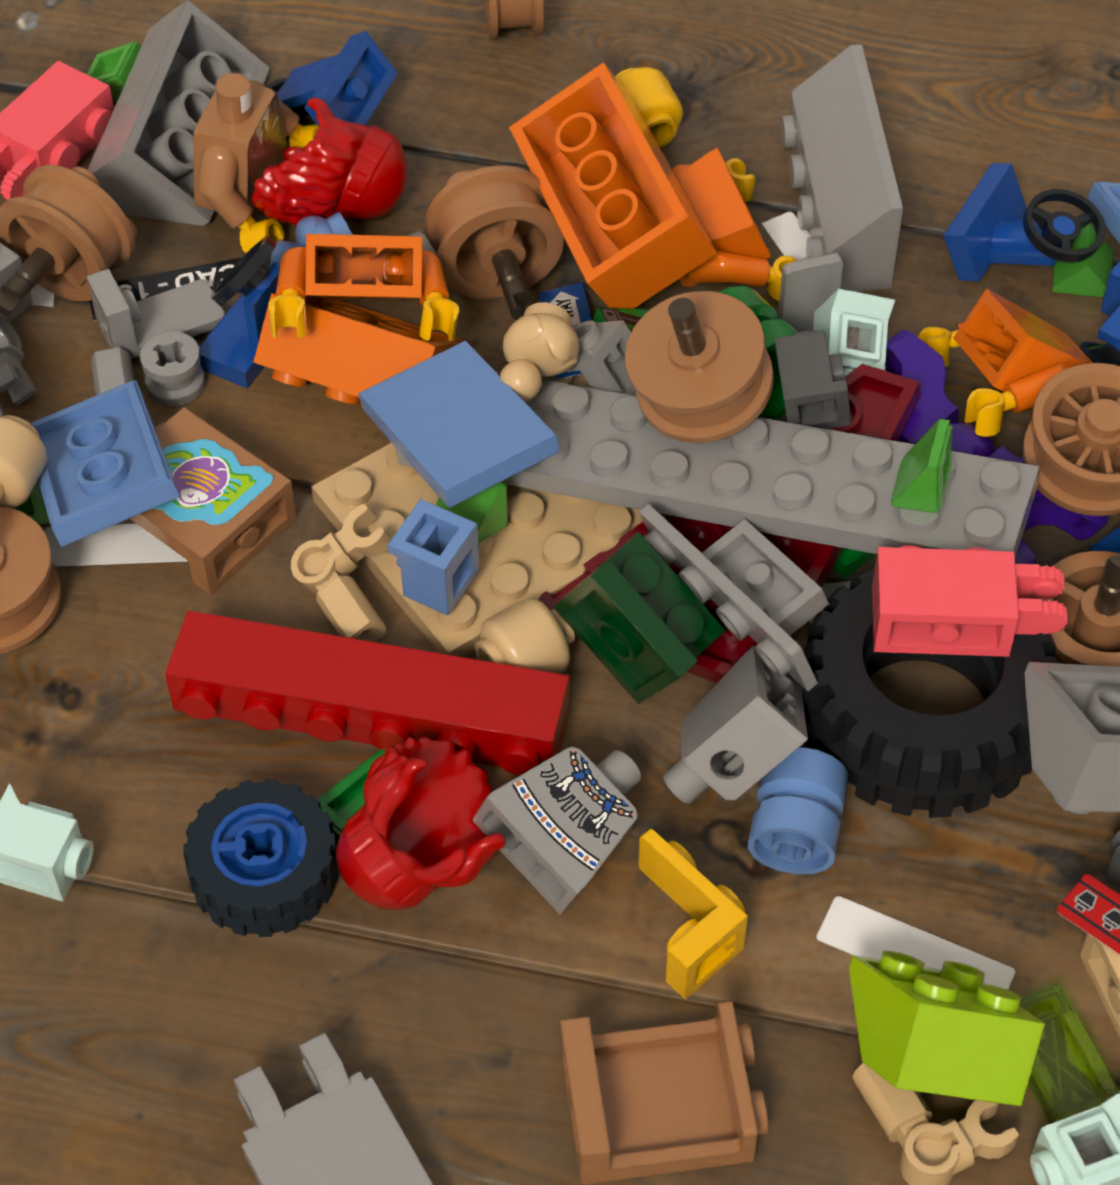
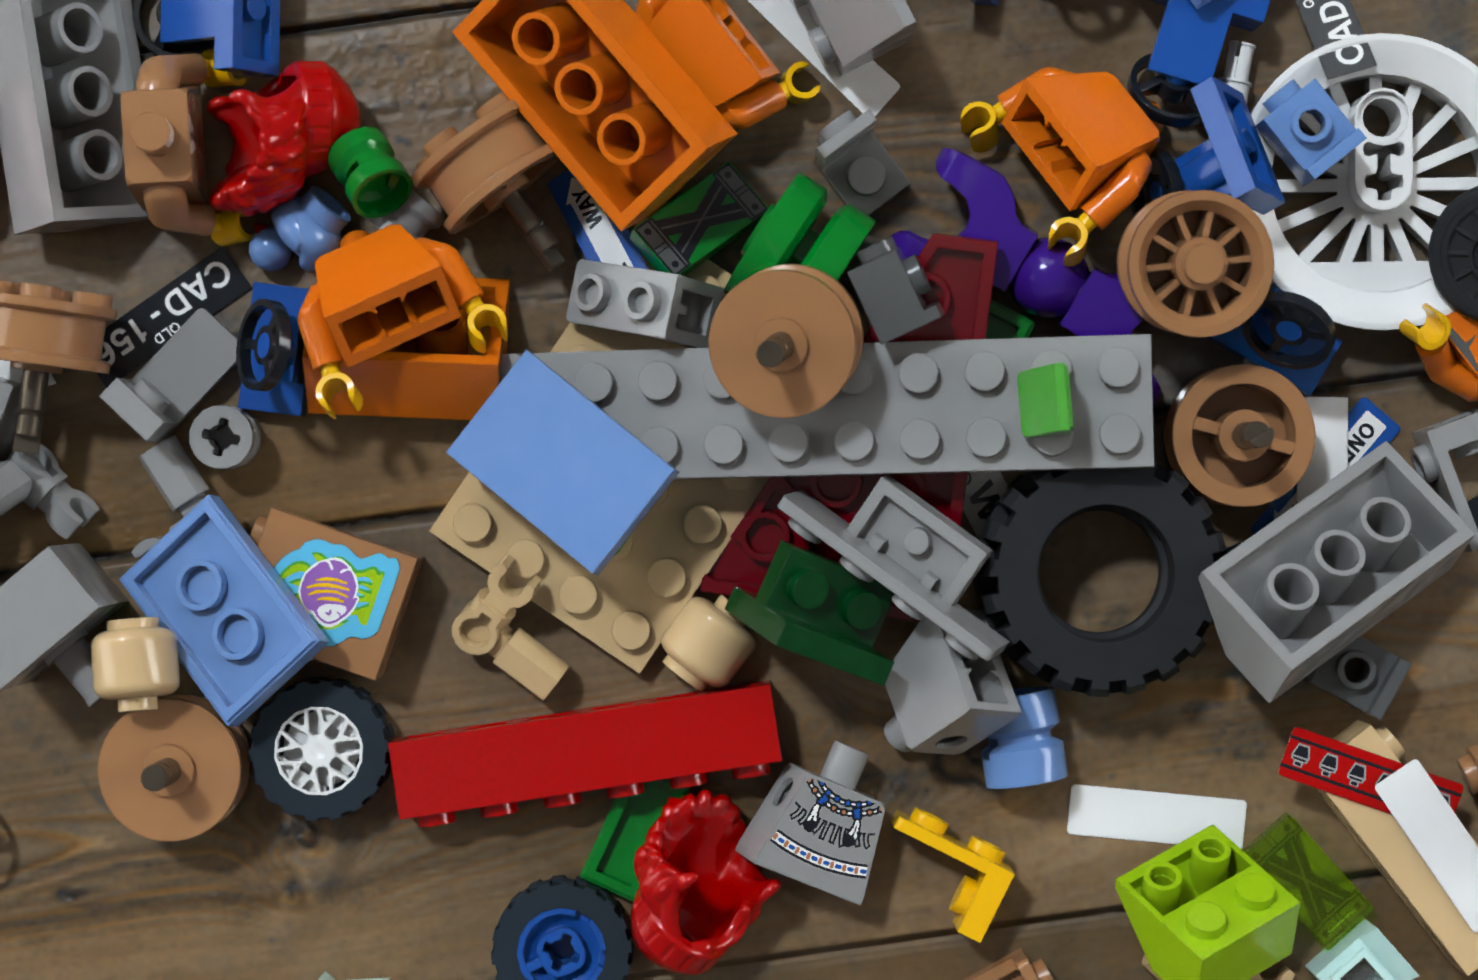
camera: 25 degrees left, 35 degrees up
(95, 610) = (321, 748): none -> black wheel
(398, 215) = (363, 164): none -> green wheel
(436, 556) = (599, 617): medium blue brick -> none
(538, 347) = (604, 339): tan animal -> none
(855, 327) = (903, 183): light aqua window -> none
(961, 601) = (1116, 527): coral hinge -> none

